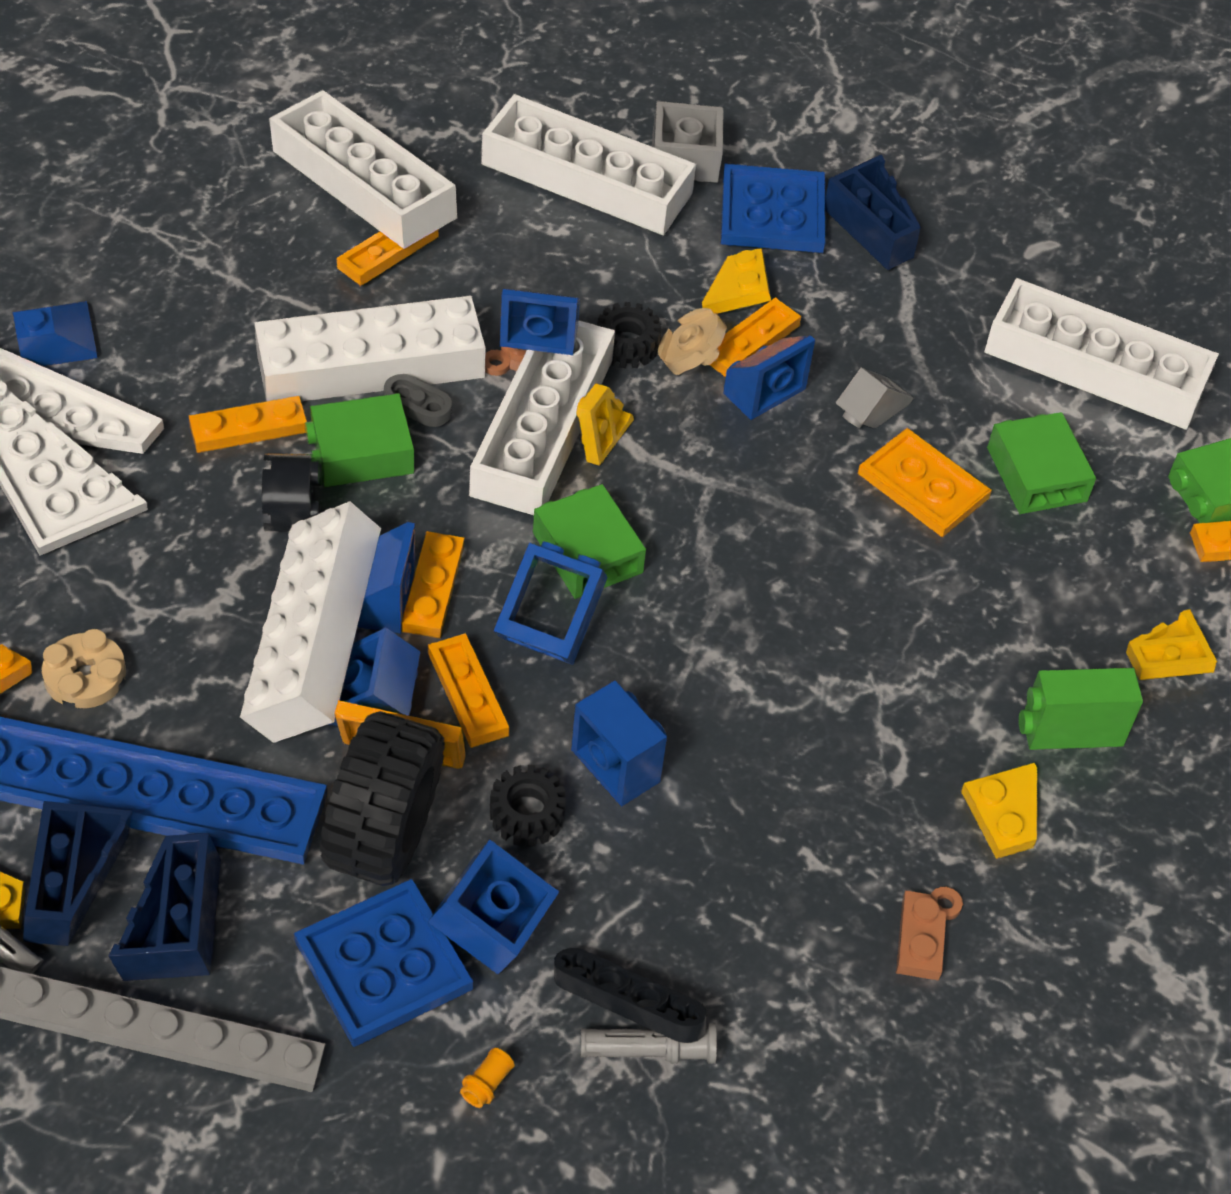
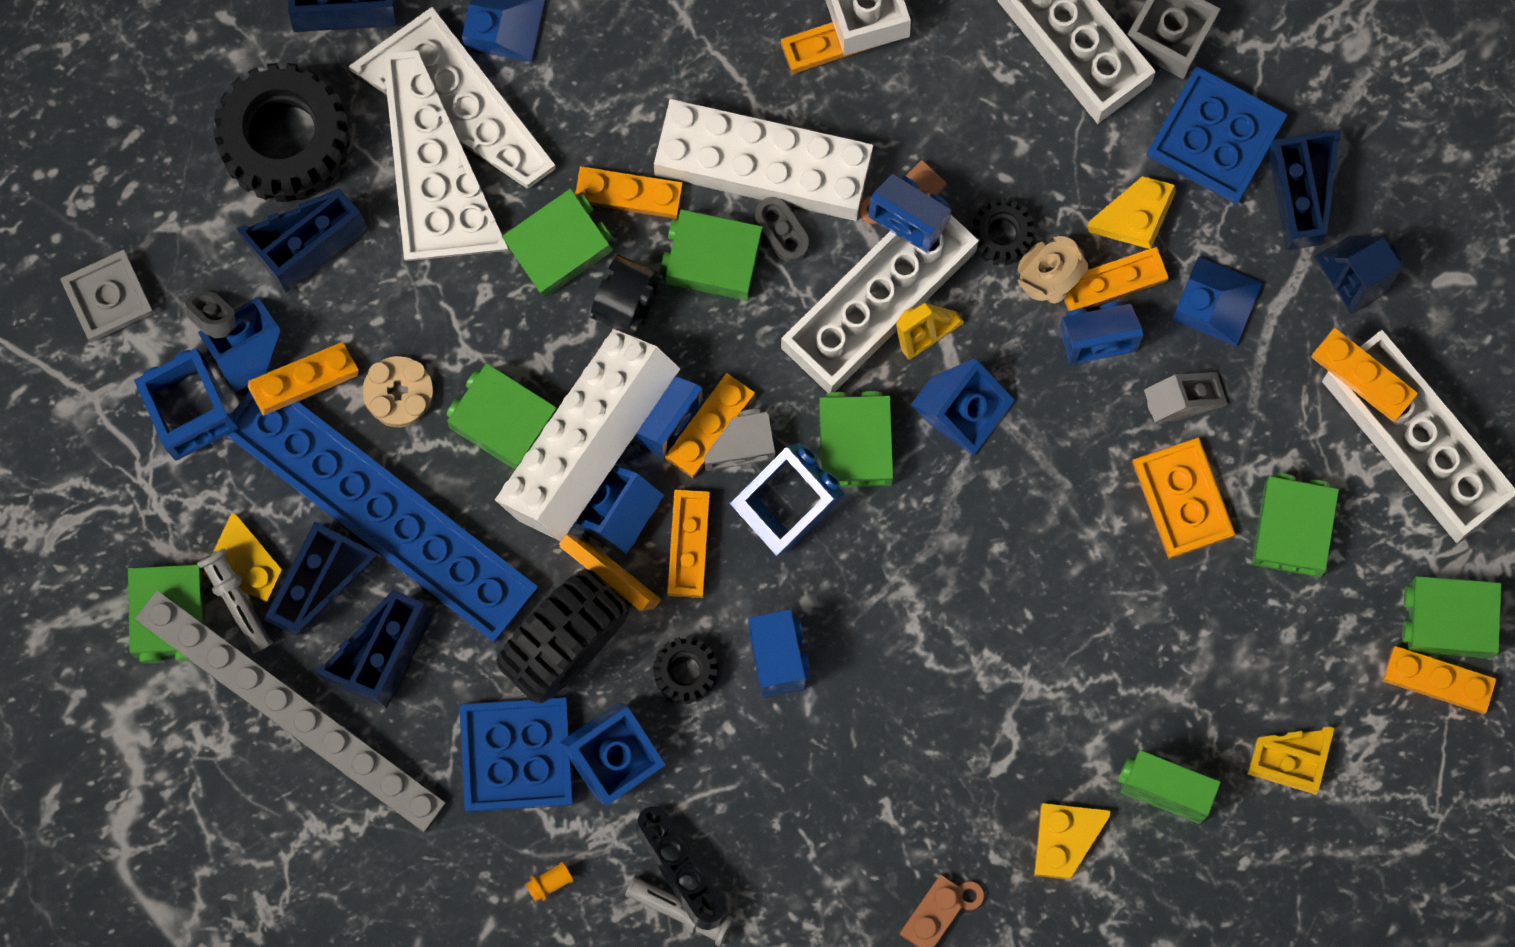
camera: 30 degrees right, 25 degrees up
(197, 477) = (559, 242): none -> bright green brick
(206, 647) = (499, 415): none -> bright green brick
(477, 581) = (742, 442): none -> light grey slope
(674, 474) = (963, 404): none -> blue slope
(852, 327) = (1217, 301): none -> blue slope
(969, 246) = (1360, 269): none -> dark blue wedge
(1027, 311) = (1364, 375): none -> light orange plate

